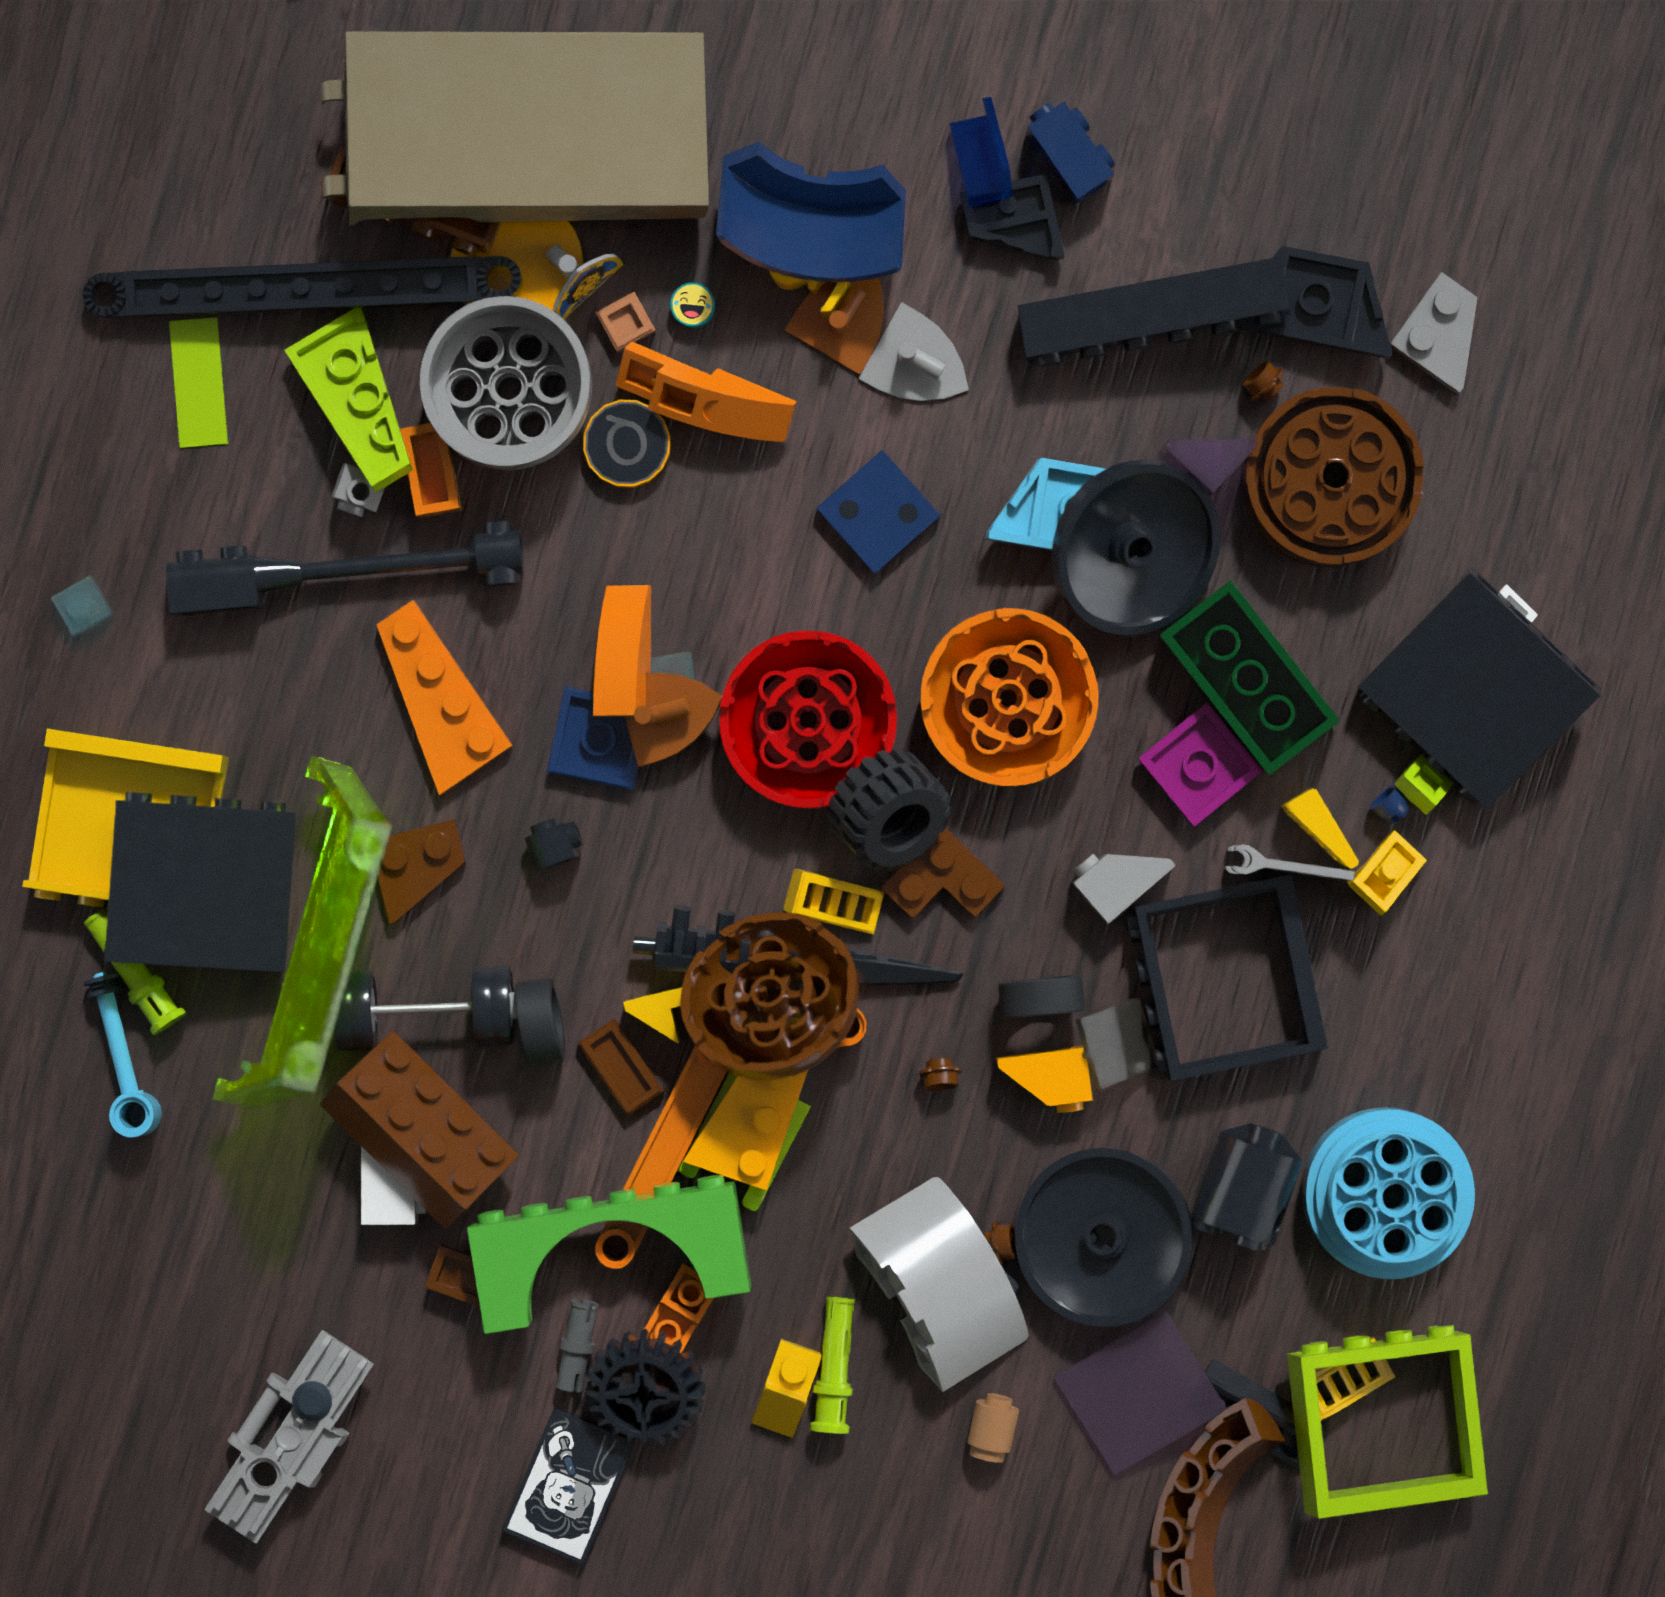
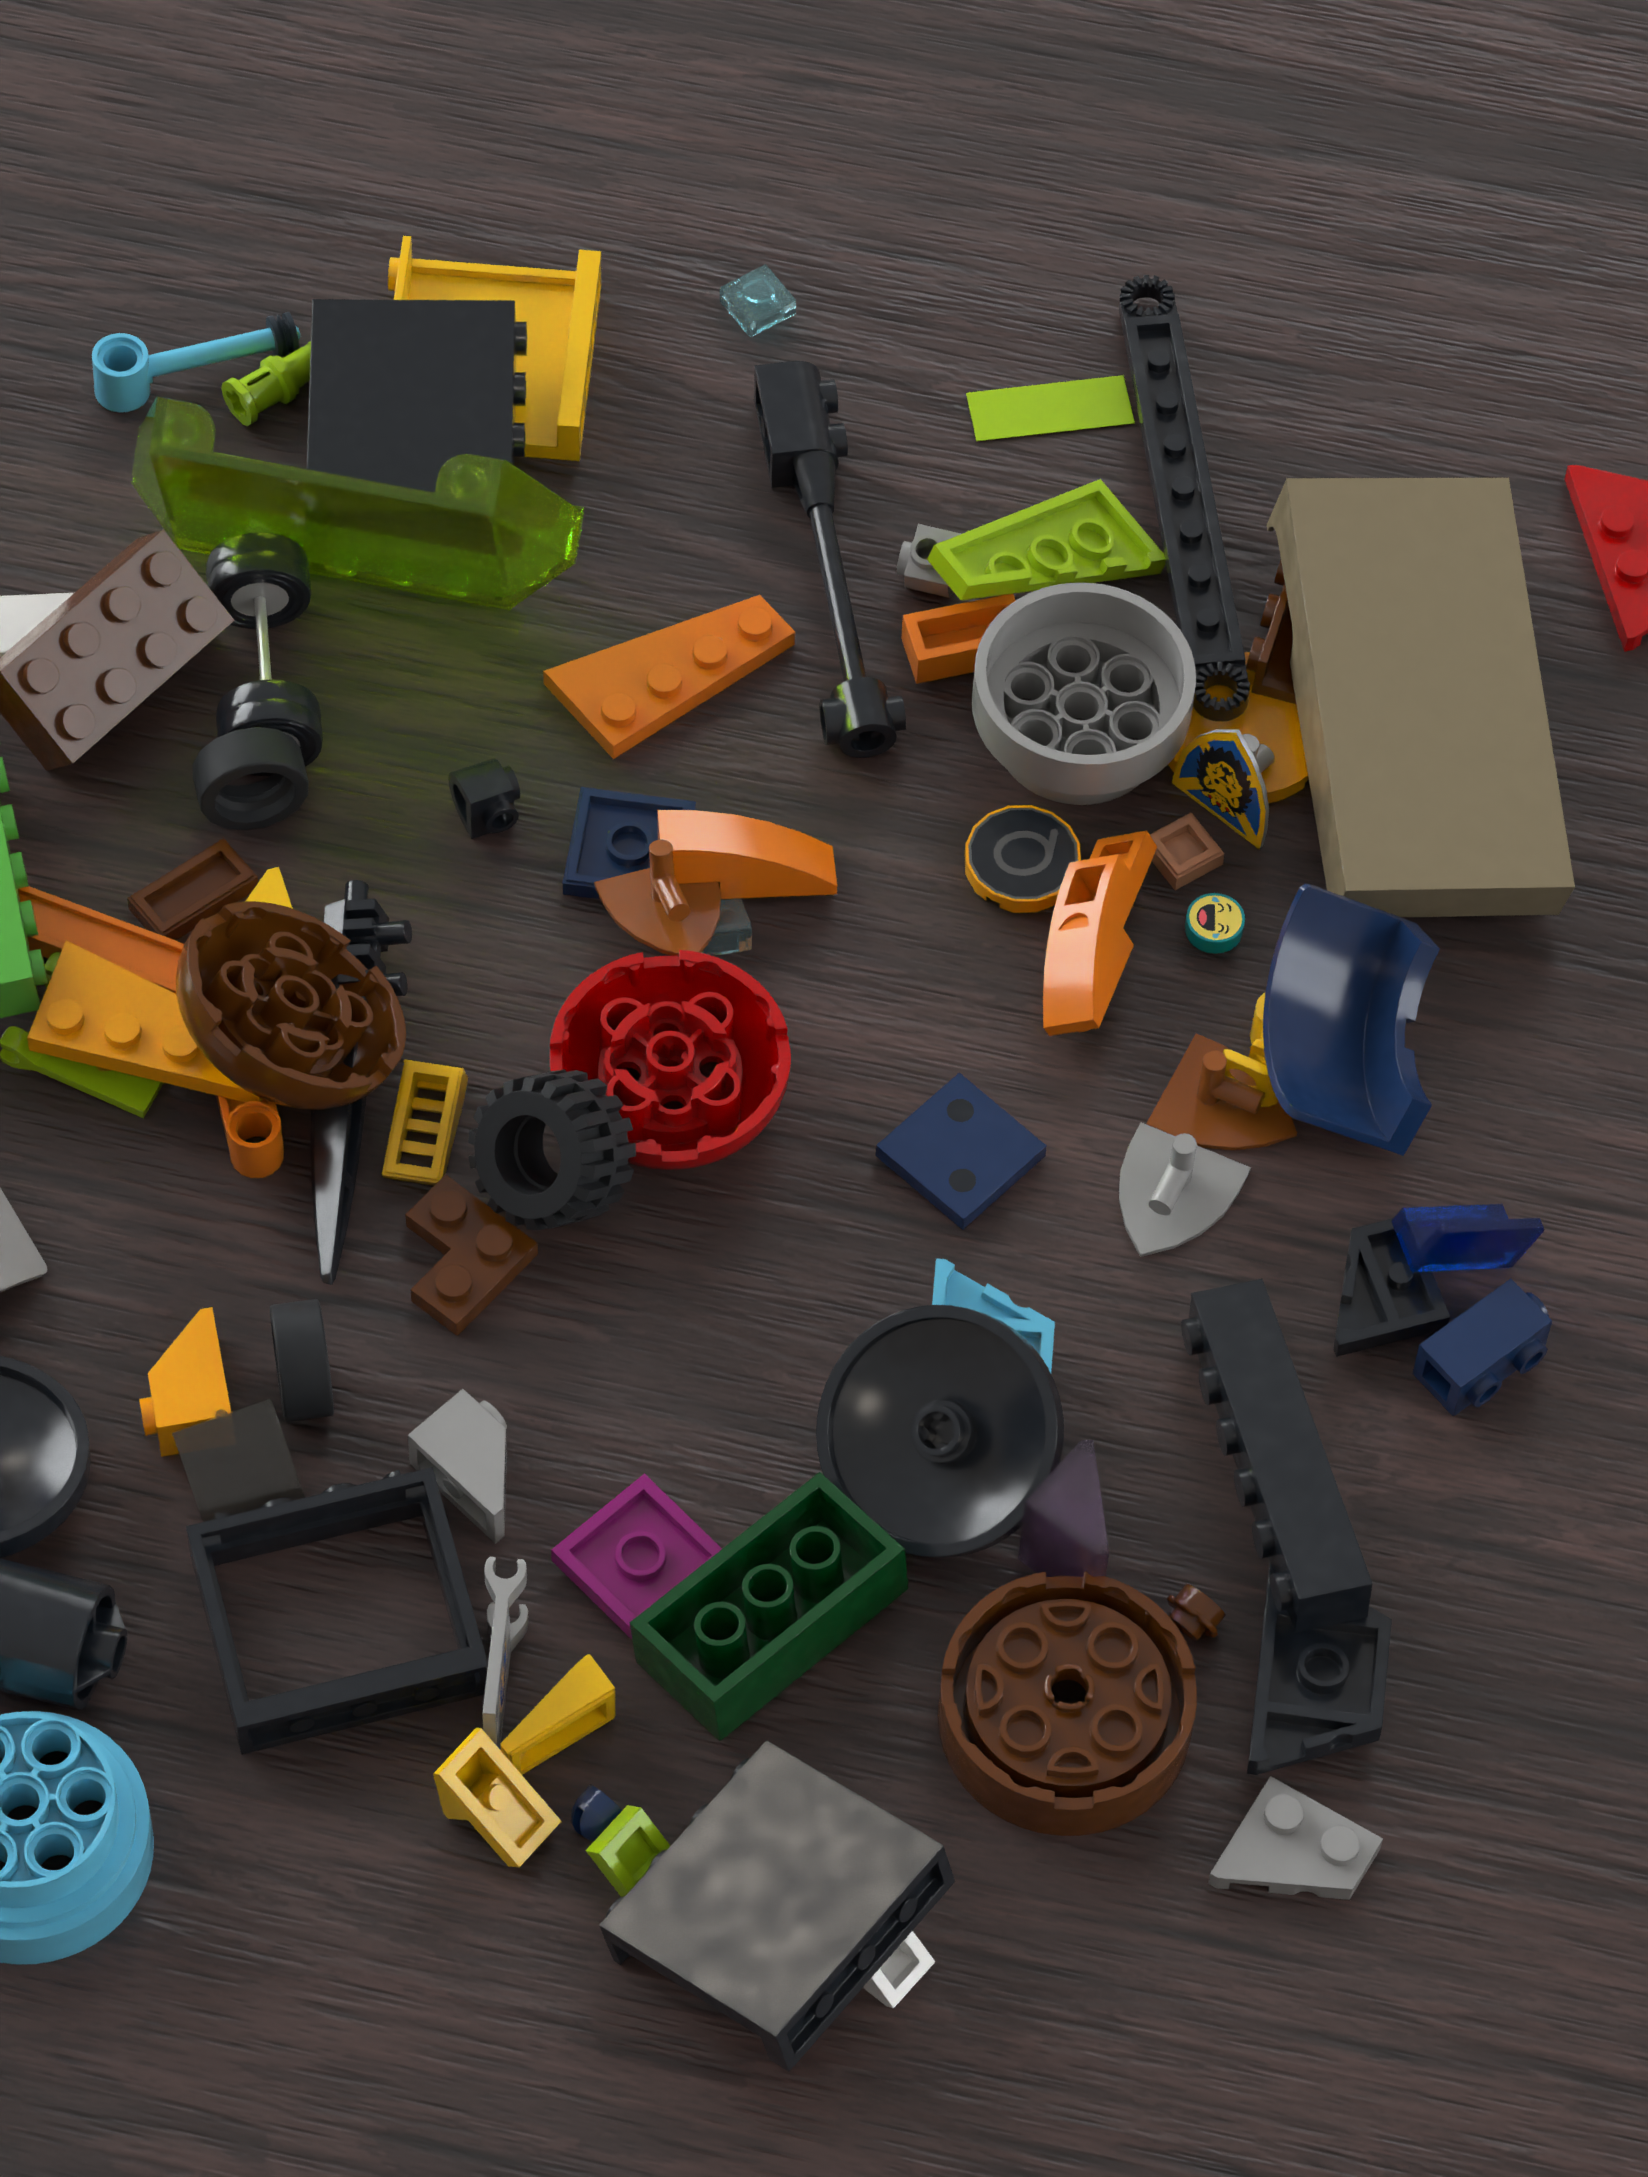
camera: 85 degrees right, 30 degrees down
(417, 864) = (452, 655): reddish brown wing -> none
(940, 1075) = (189, 1258): reddish brown plate -> none
(1033, 650) = (736, 1243): orange brick -> none

